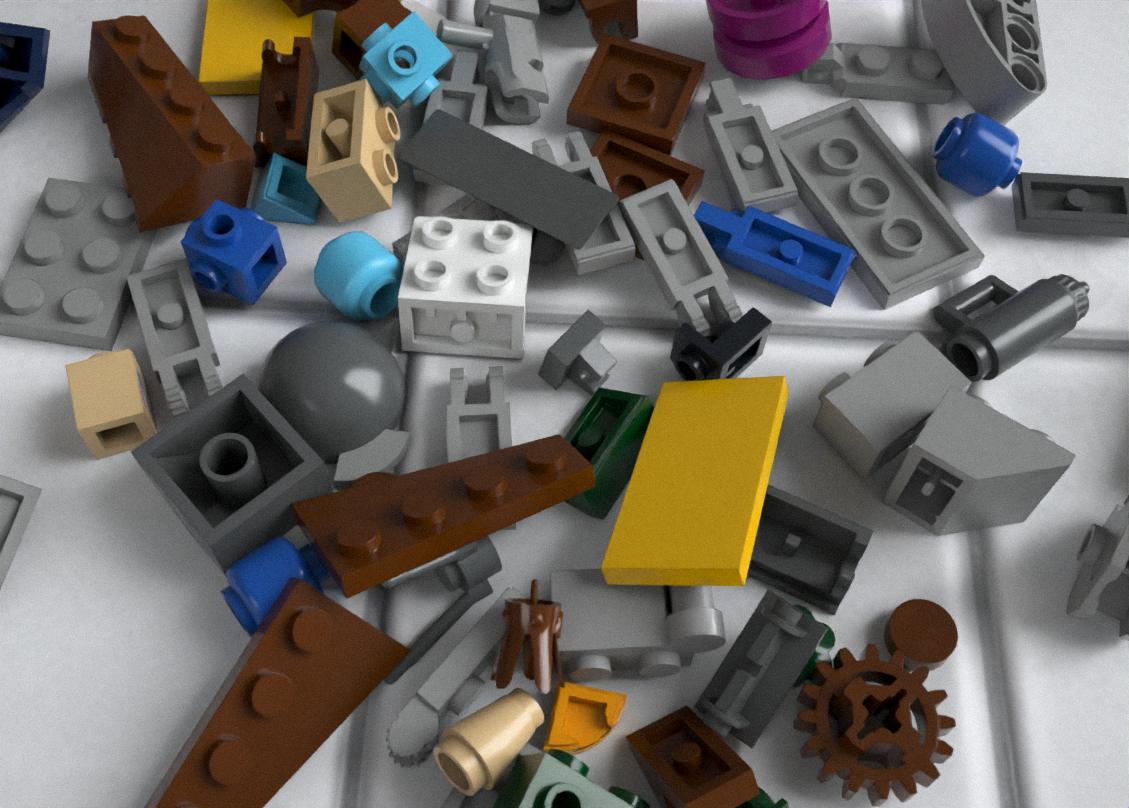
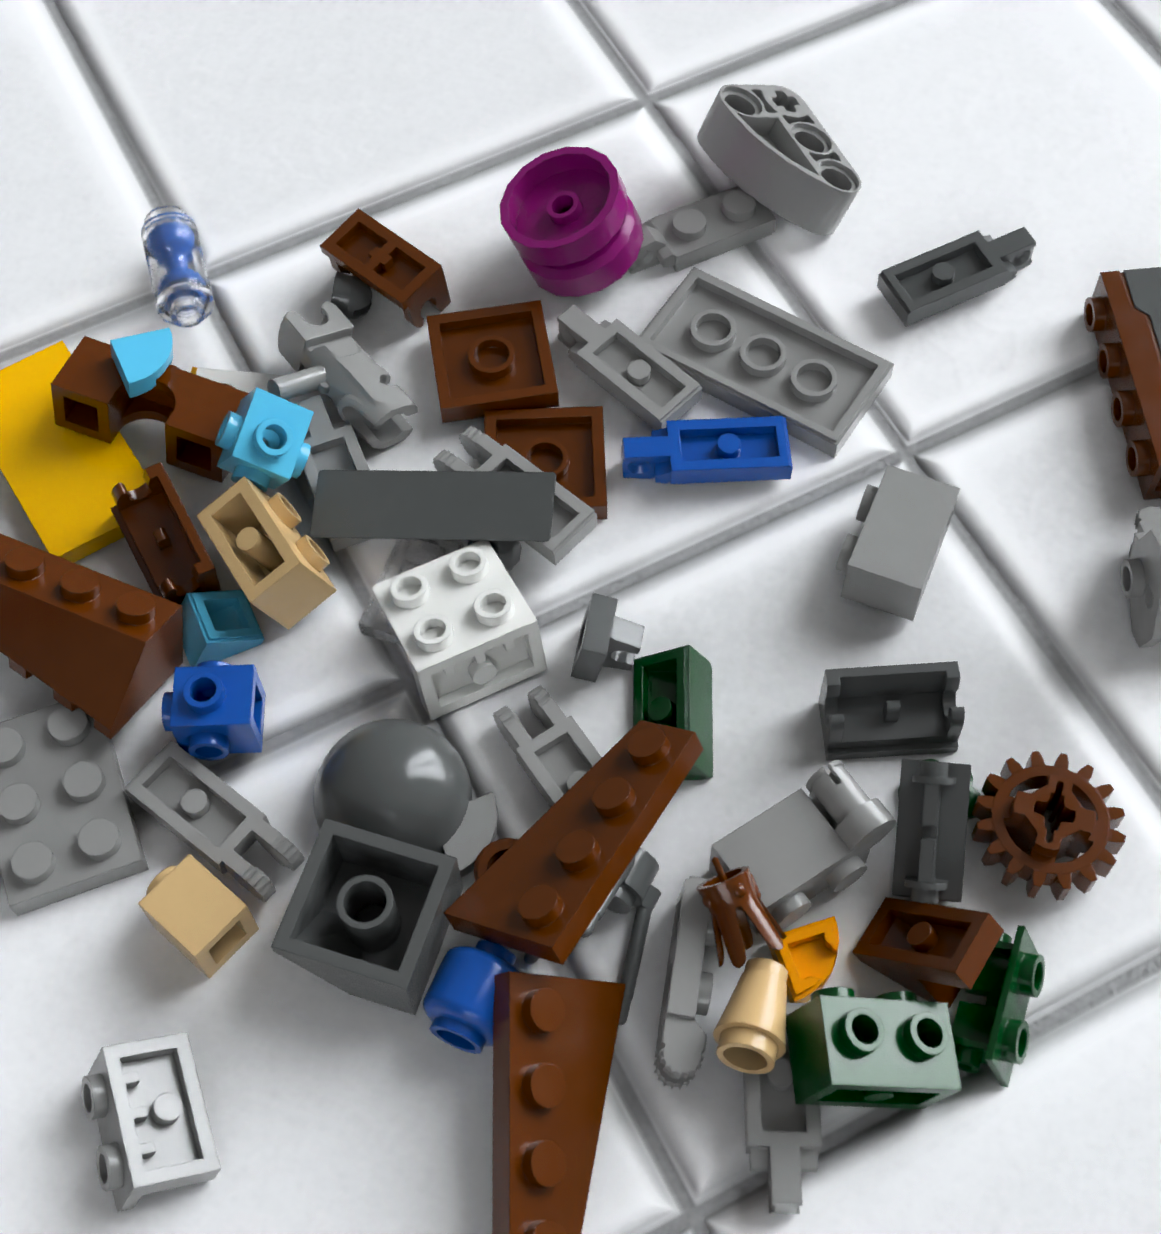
camera: 25 degrees left, 0 degrees up
(359, 276) = (353, 671): medium azure head -> none
(679, 255) = (640, 504): light grey hinge -> none
(698, 484) = (789, 697): yellow tile -> none
(726, 353) = (723, 582): black bracket -> none
(922, 632) = (1037, 725): reddish brown tile -> none
(974, 469) = (1001, 563): light grey slope -> none
(977, 154) = (834, 272): blue head -> none
(1014, 327) = (957, 420): dark grey piece -> none

